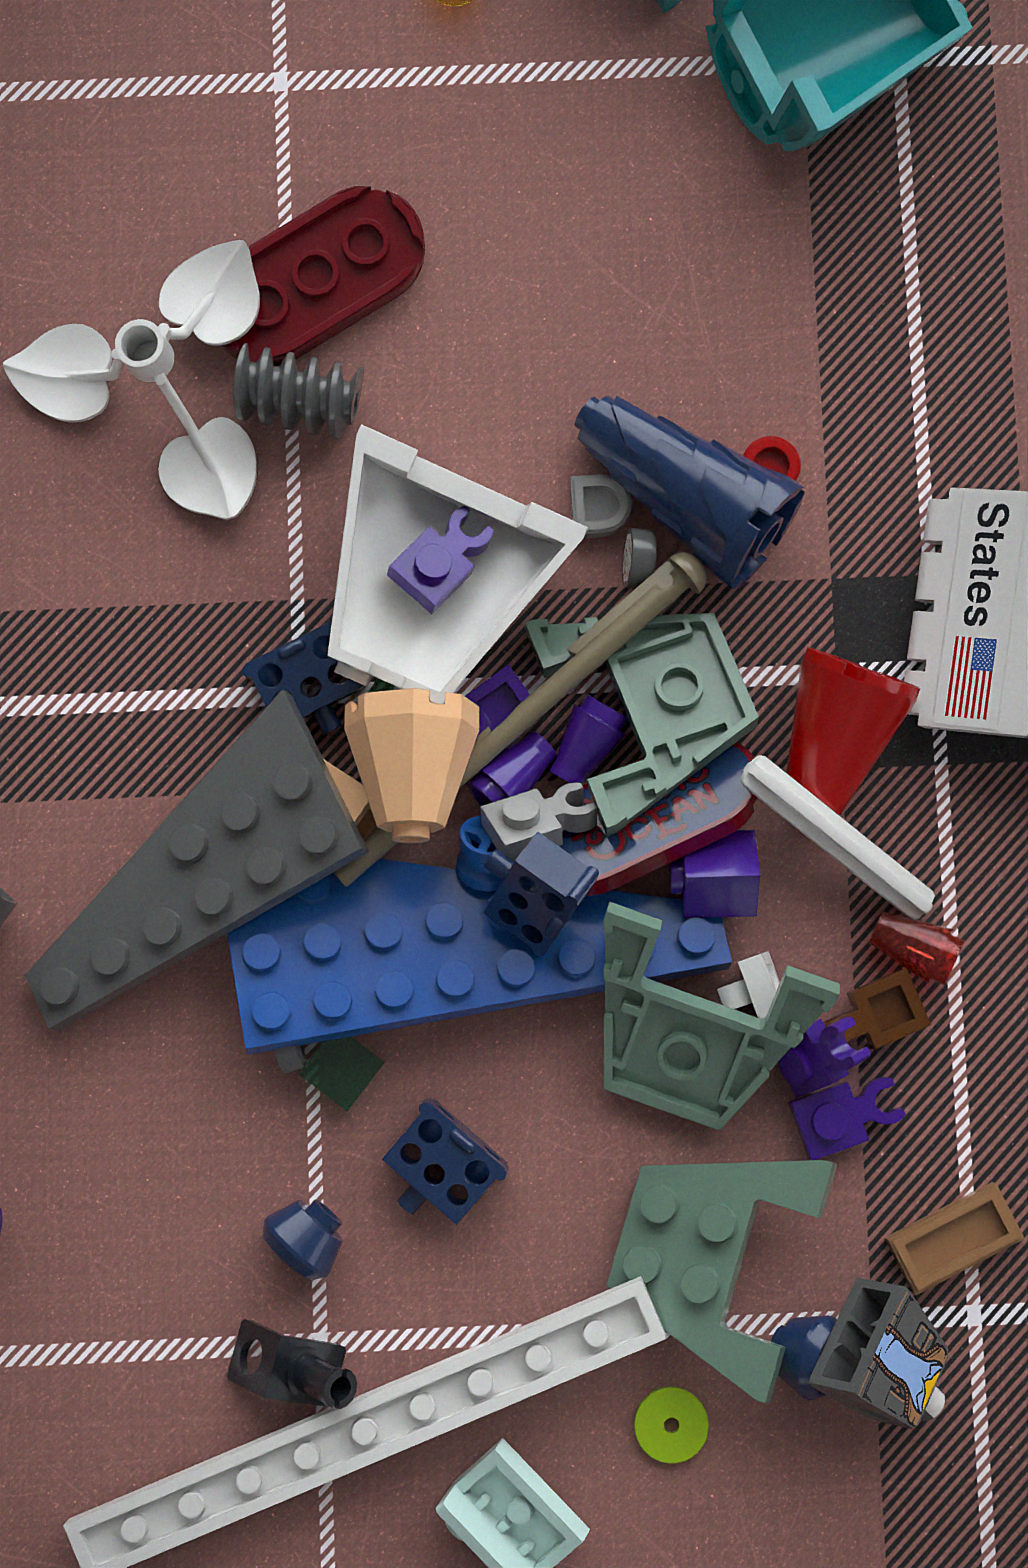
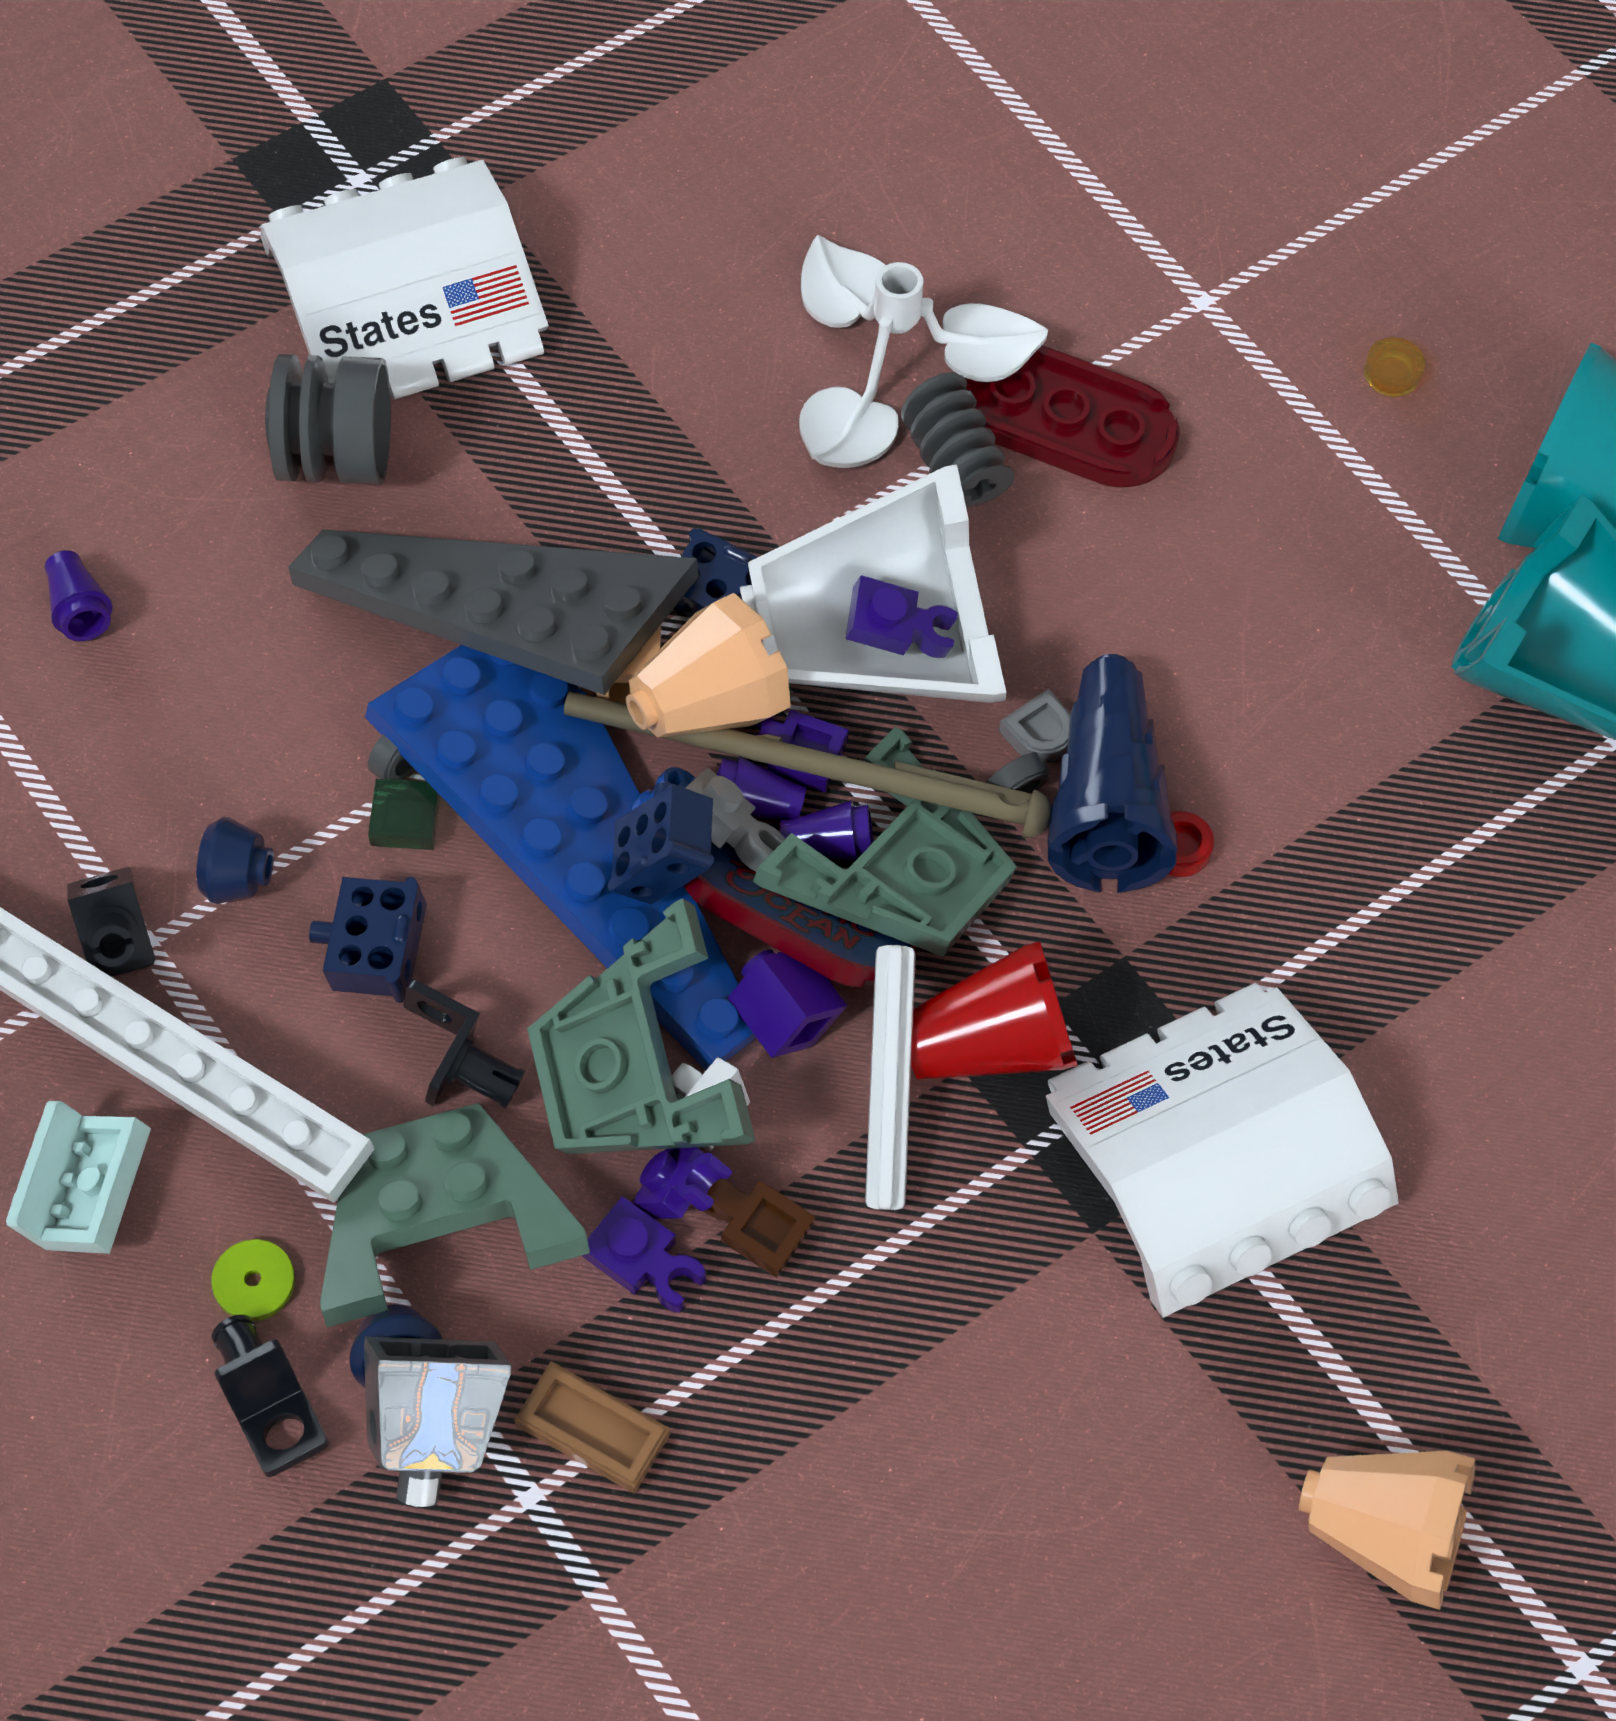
camera: 55 degrees right, 20 degrees down
(599, 1156) = (463, 1060): none -> black bracket
(777, 1475) = (263, 1392): none -> black bracket
(917, 945) = (844, 1223): clear red cone -> none

